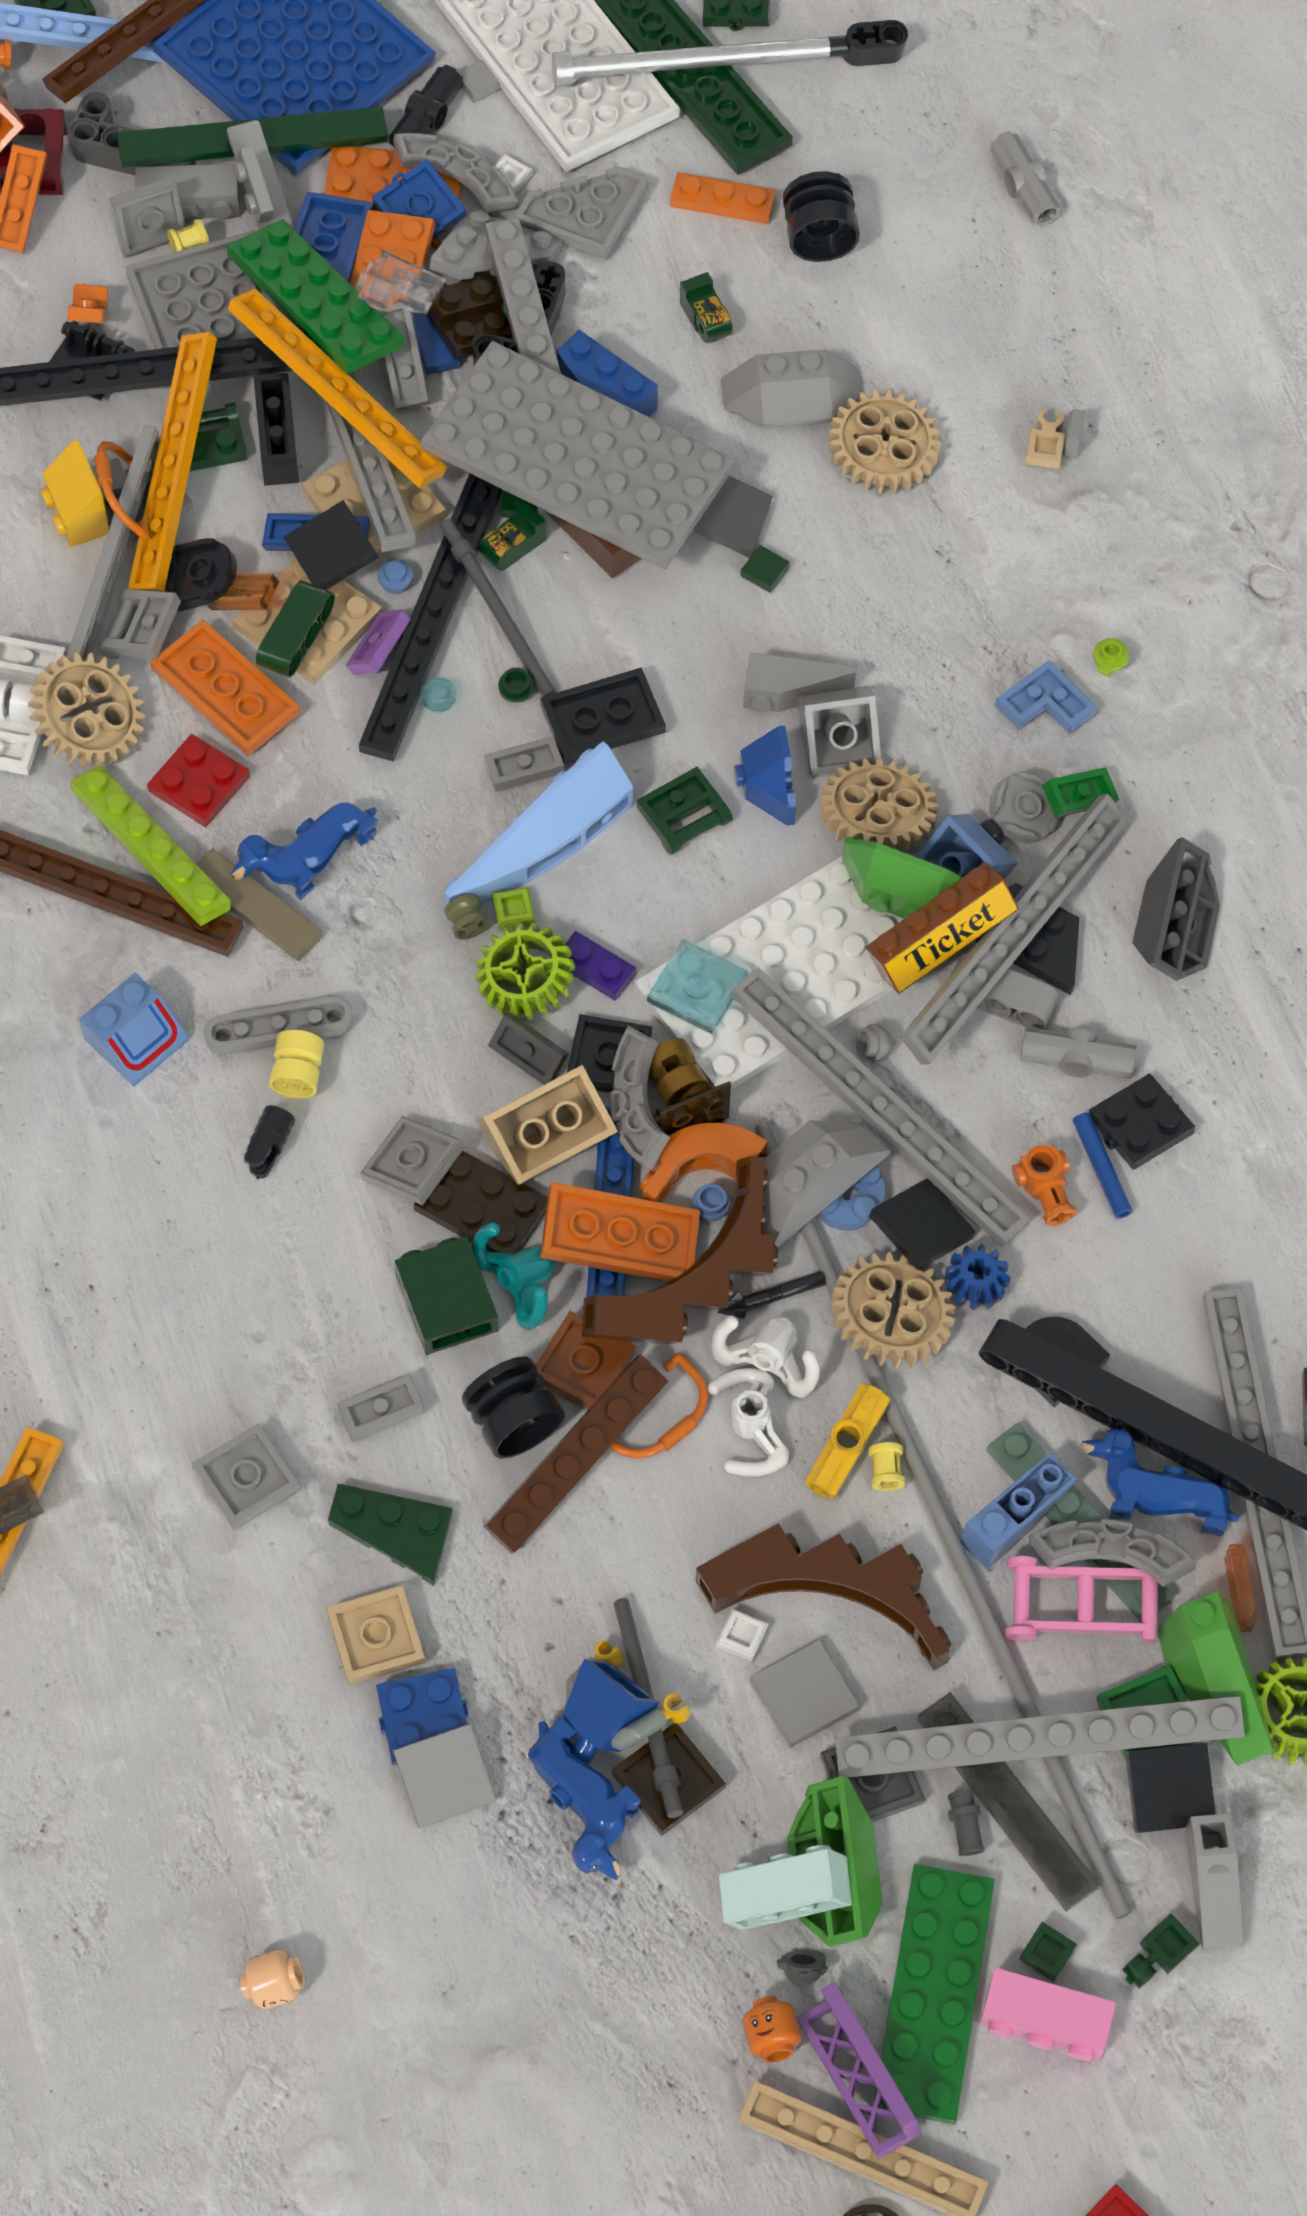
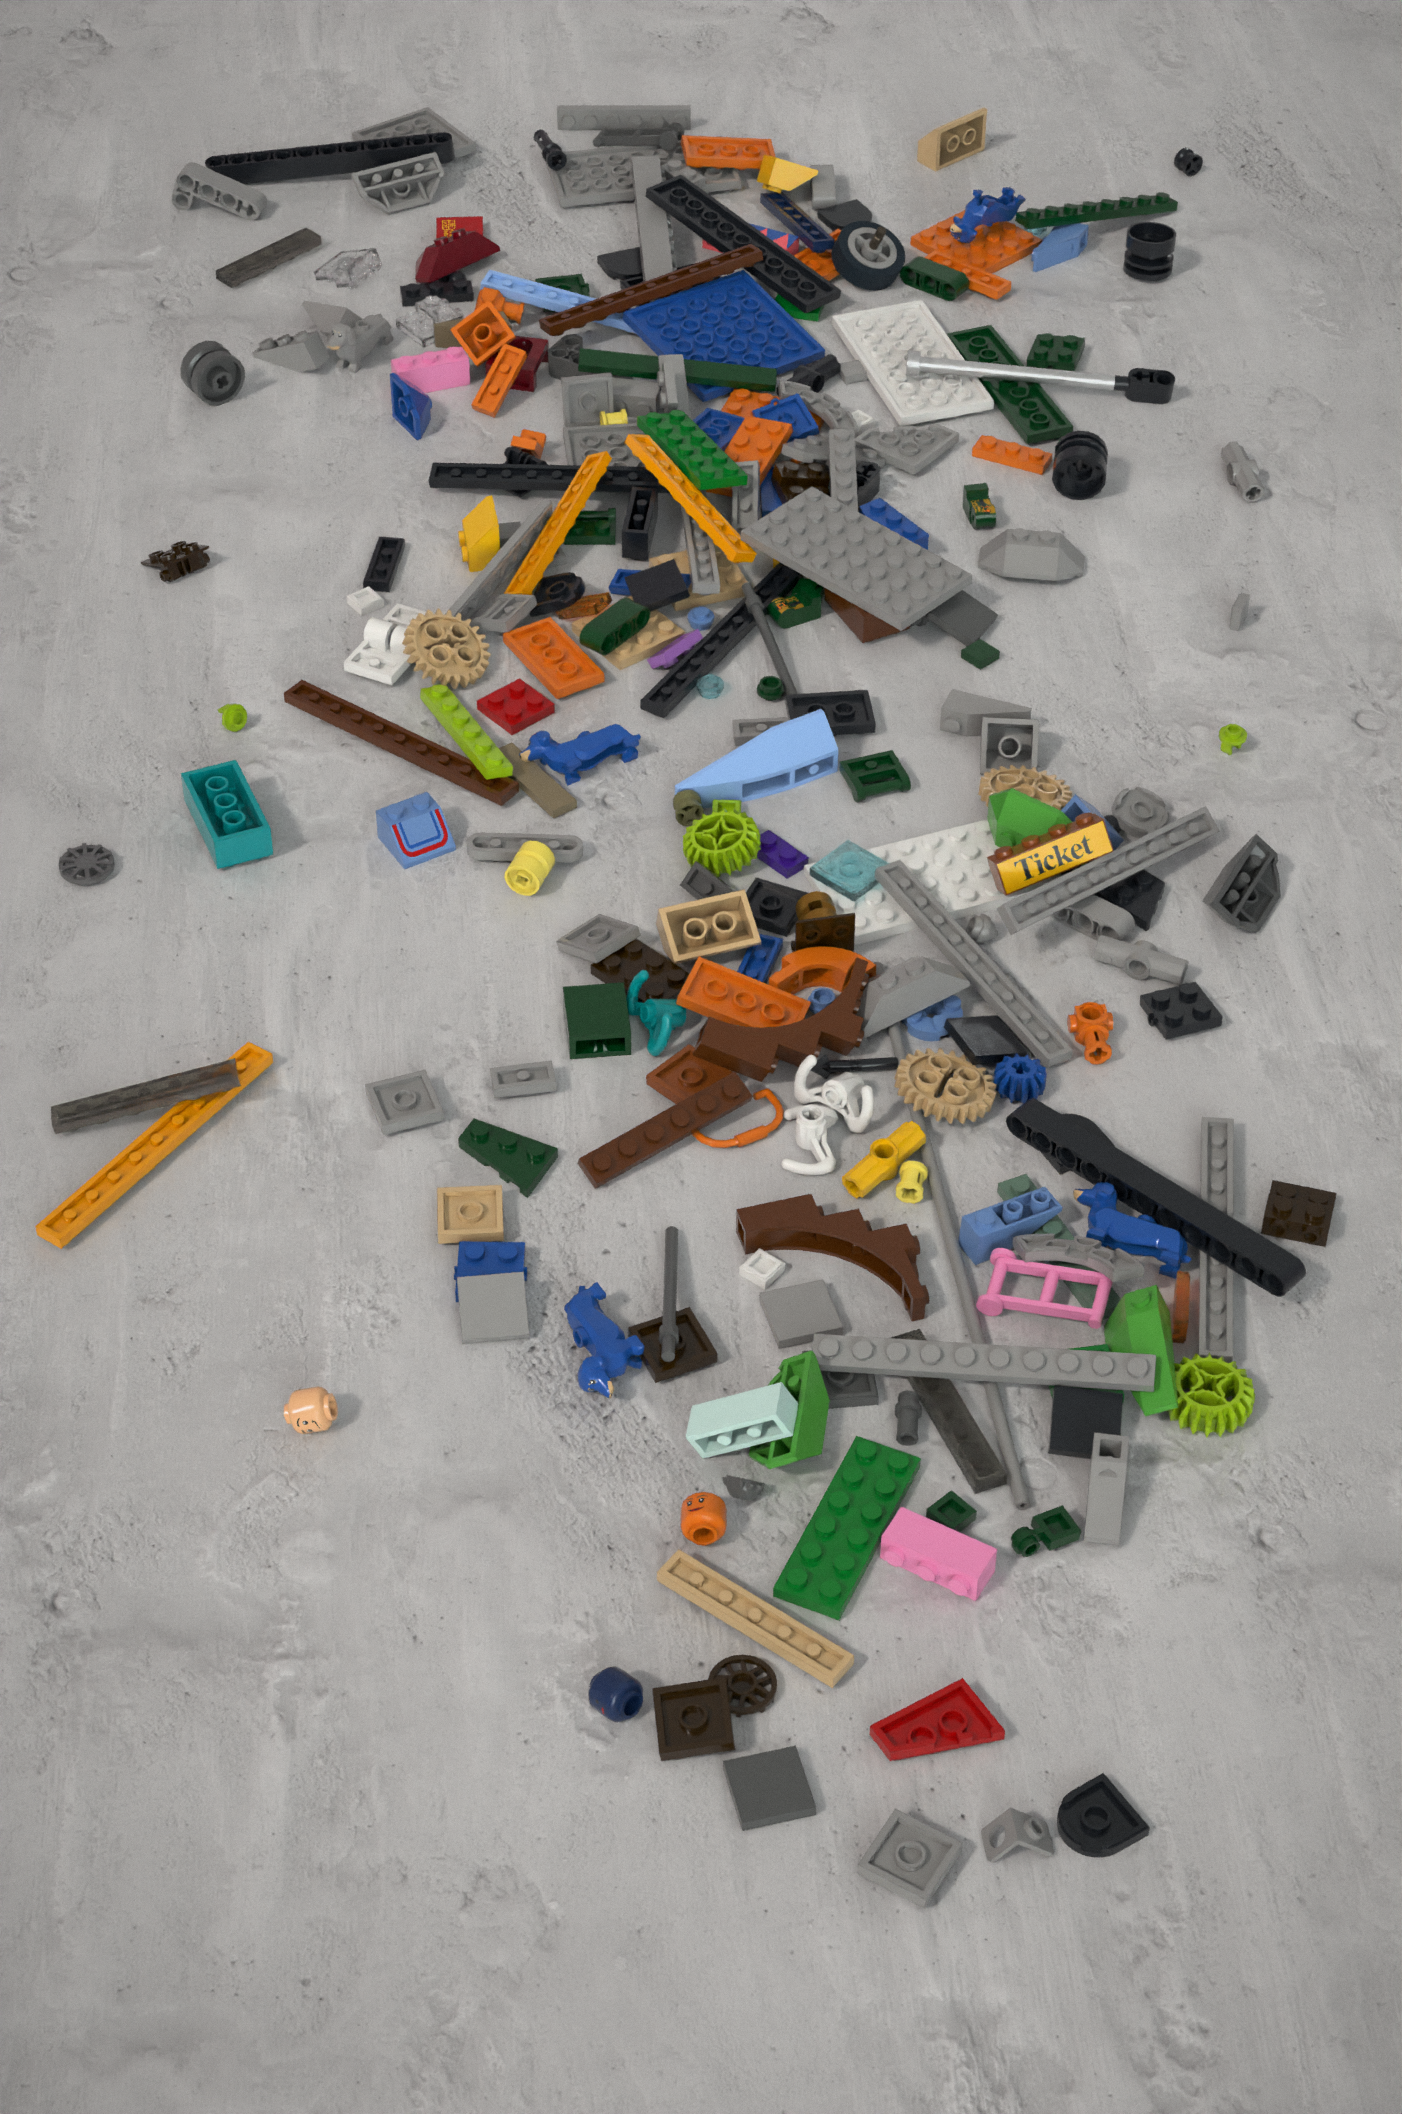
camera: 15 degrees right, 20 degrees down
(105, 481) = (503, 517): orange piece -> none
(268, 1140) = (493, 909): black hinge -> none
(395, 280) = (750, 446): clear plate -> none
(513, 1407) = (624, 1087): black wheel -> none
(611, 1708) = (640, 1284): blue torso -> none
(629, 1098) = (776, 929): light grey tile -> none
(767, 776) = (943, 760): blue slope -> none
(876, 2070) = (777, 1550): medium lavender fence -> none
(884, 441) = (1092, 595): tan gear -> none
(1046, 442) = (1216, 615): tan plate -> none
(1046, 691) = (1175, 750): medium blue plate -> none
(1078, 791) = (1177, 805): green plate -> none
(1102, 1165) = (1141, 1032): blue piece -> none

